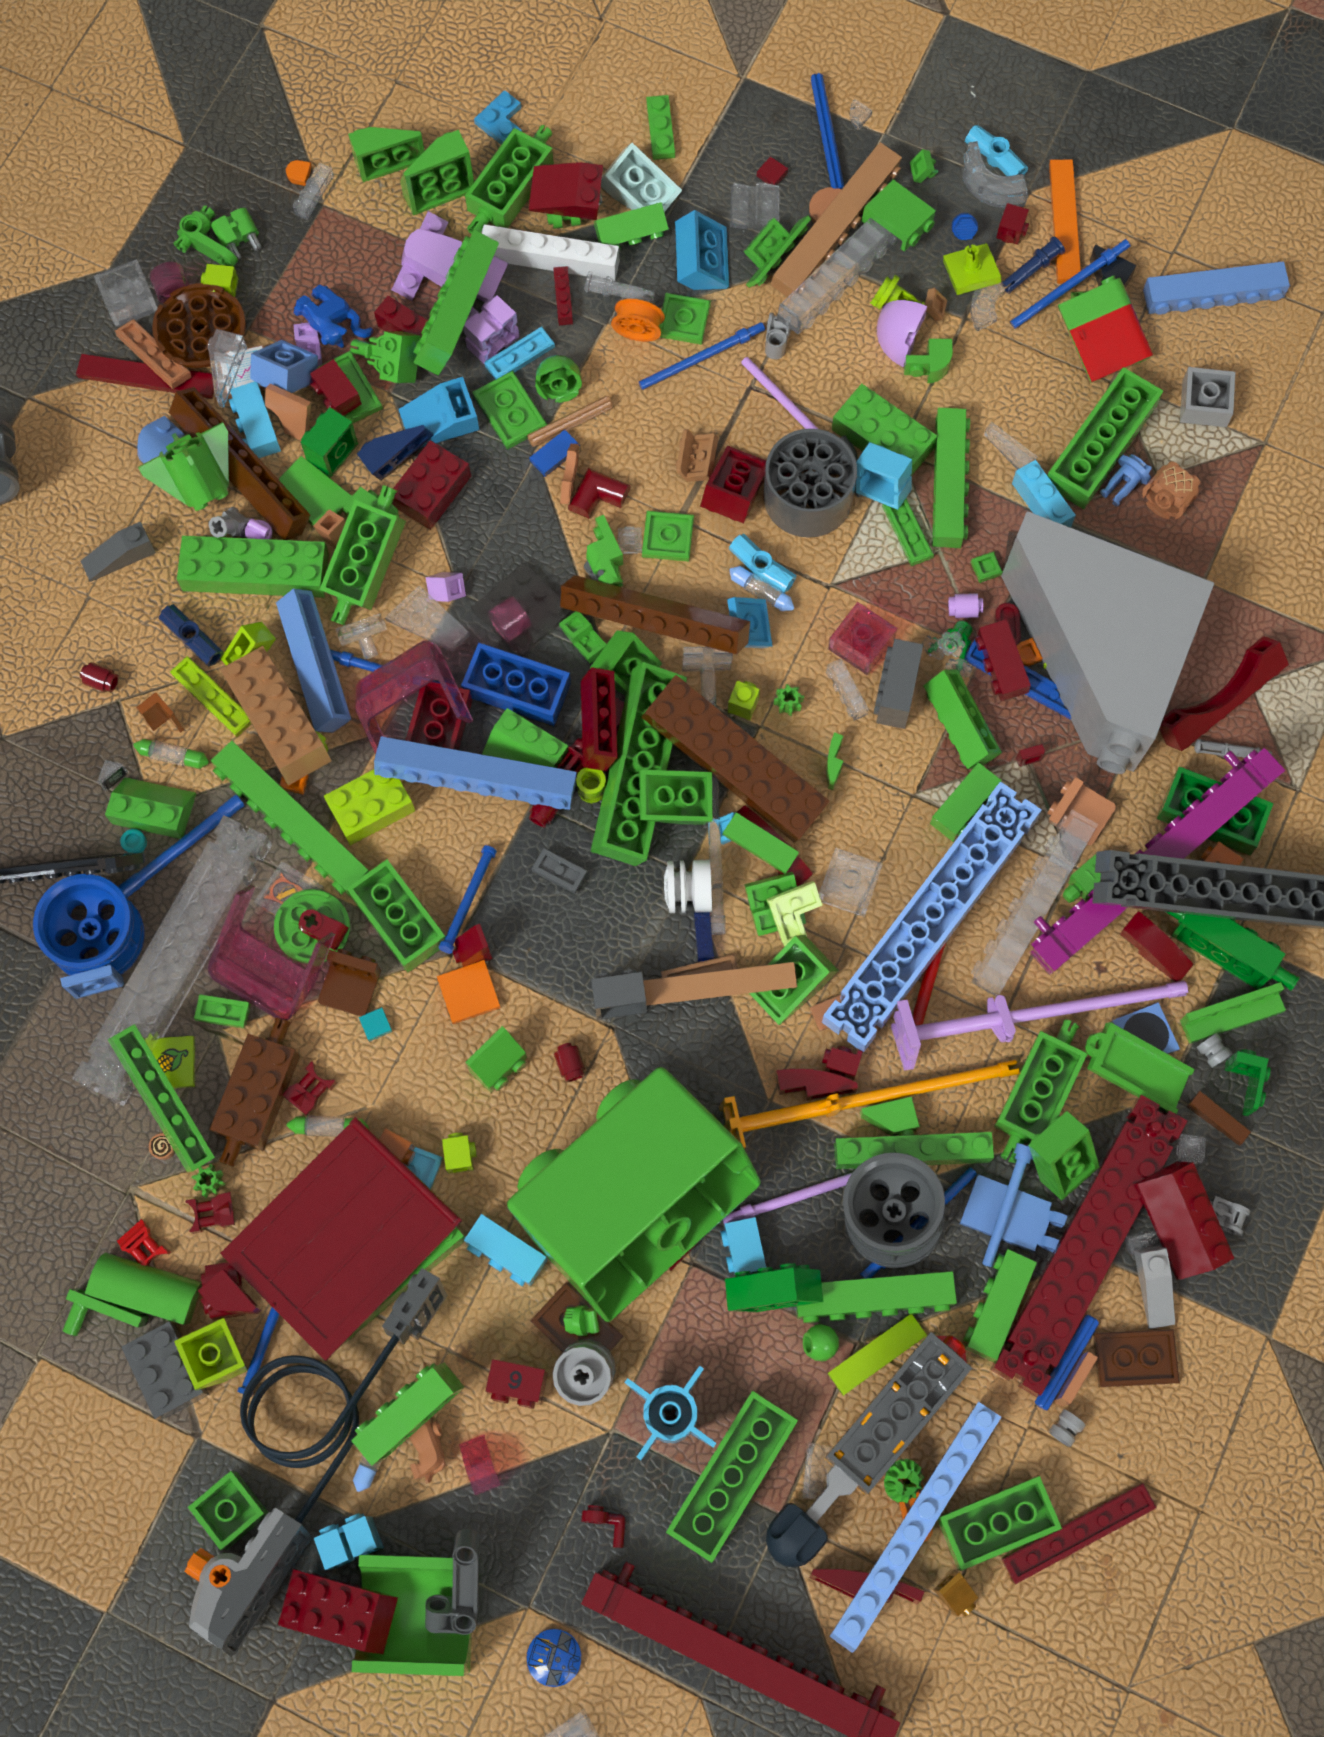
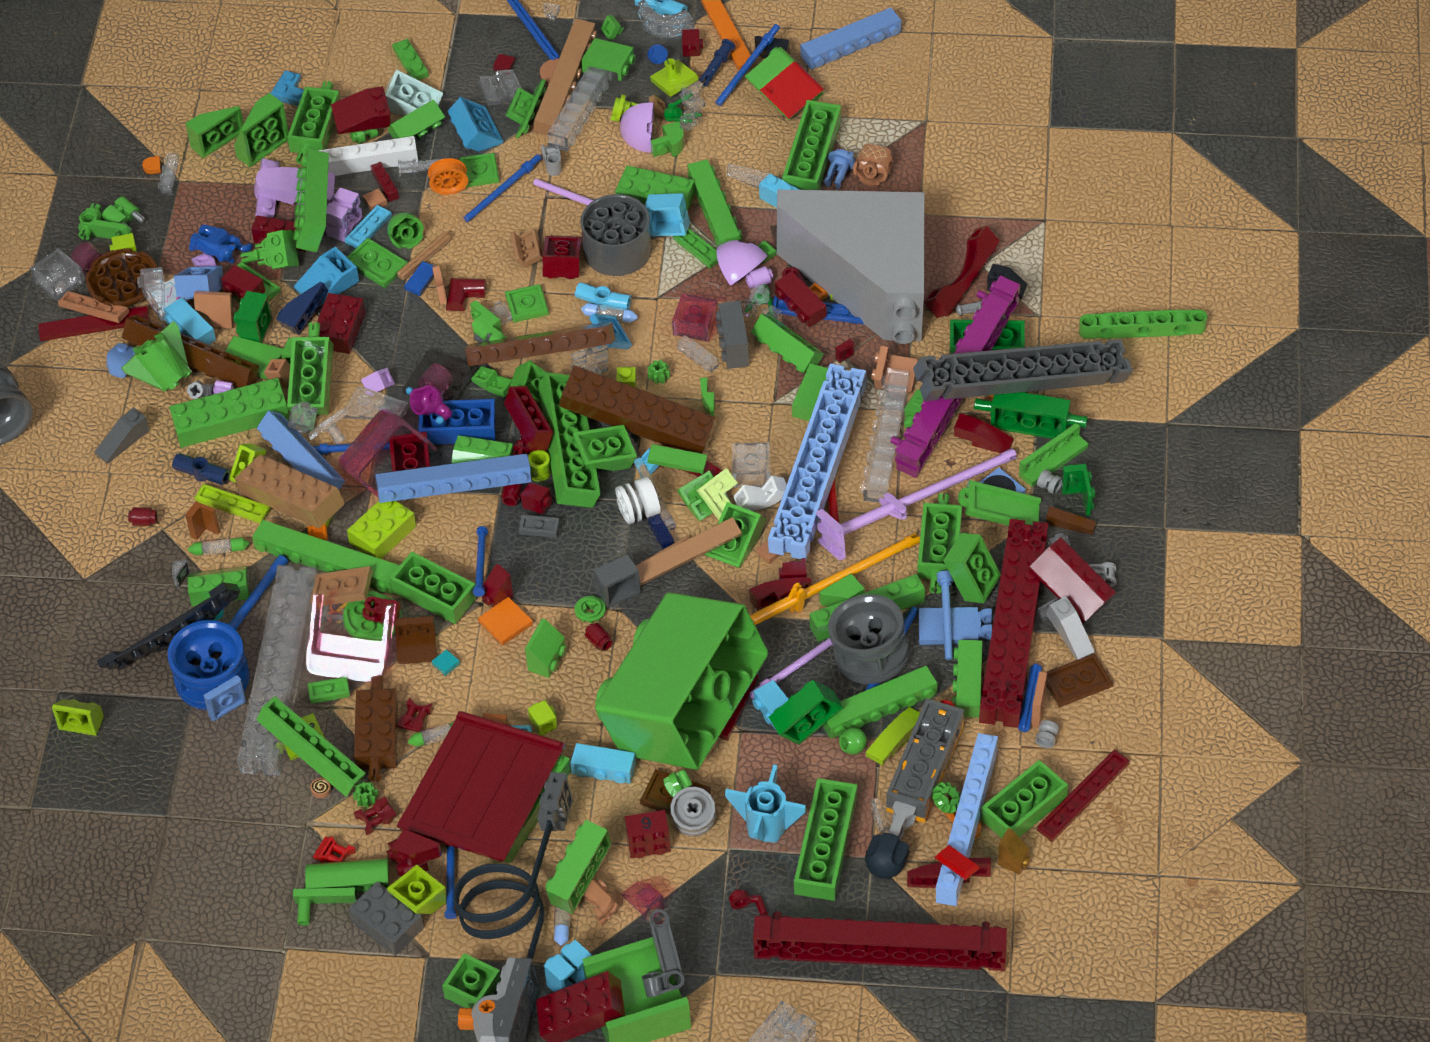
camera: 20 degrees left, 20 degrees down
(287, 875) = (343, 585): none -> medium nougat plate
(331, 612) = (302, 417): none -> clear brick
(485, 651) = (428, 401): none -> magenta piece
(542, 317) = (374, 198): none -> nougat tile
(554, 1657) = (747, 995): blue dish -> none
(565, 1010) = (593, 603): none -> bright green gear
(569, 832) = (536, 498): none -> dark red brick
(841, 932) = (758, 498): none -> white brick
(872, 1609) = (957, 862): none -> red tile
(948, 572) = (738, 259): none -> lavender brick
(951, 322) = (687, 119): none -> clear plant
(1207, 397) = (873, 102): light grey brick -> none
(1273, 727) = (999, 270): none -> black slope

